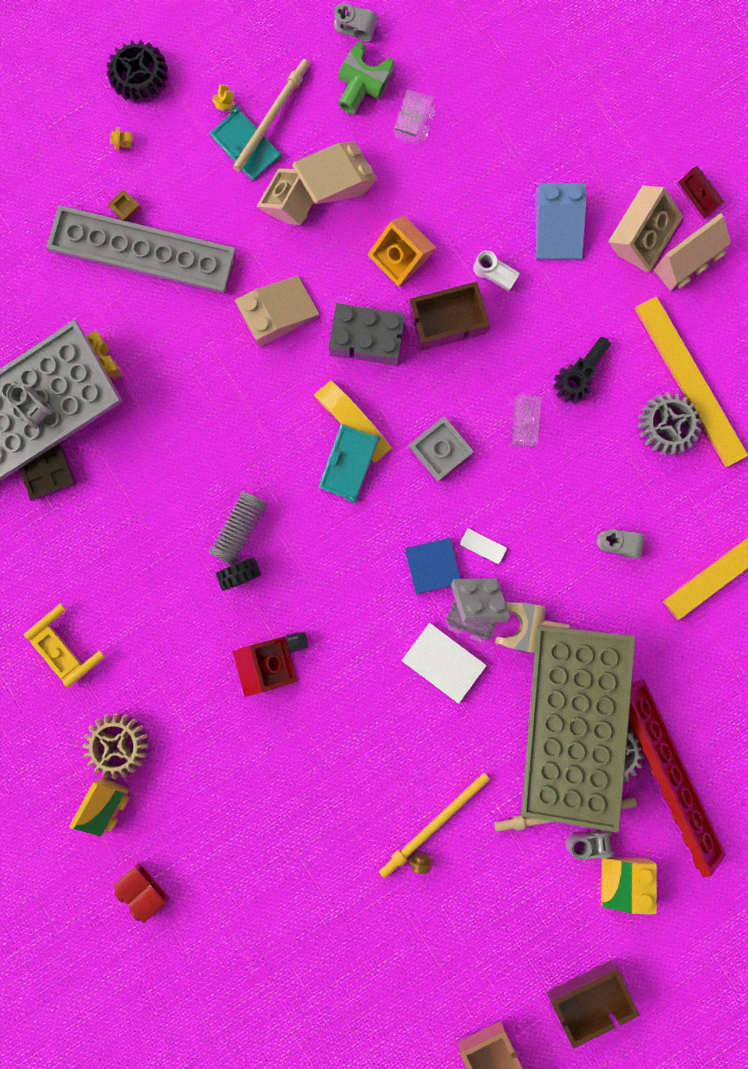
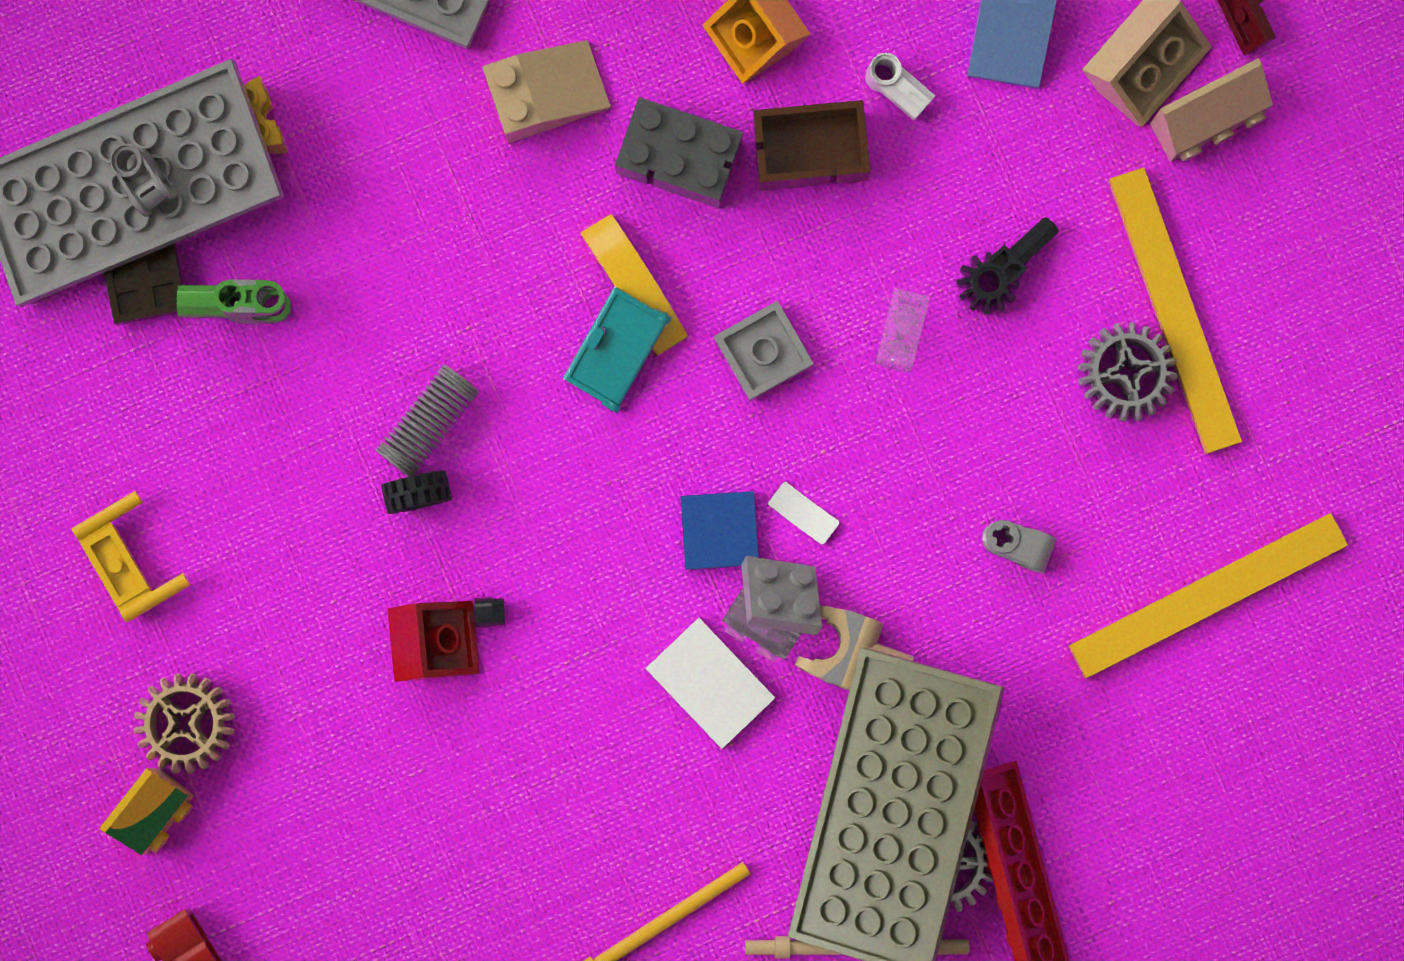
camera: 10 degrees right, 0 degrees up
(104, 472) = (215, 301): none -> bright green connector

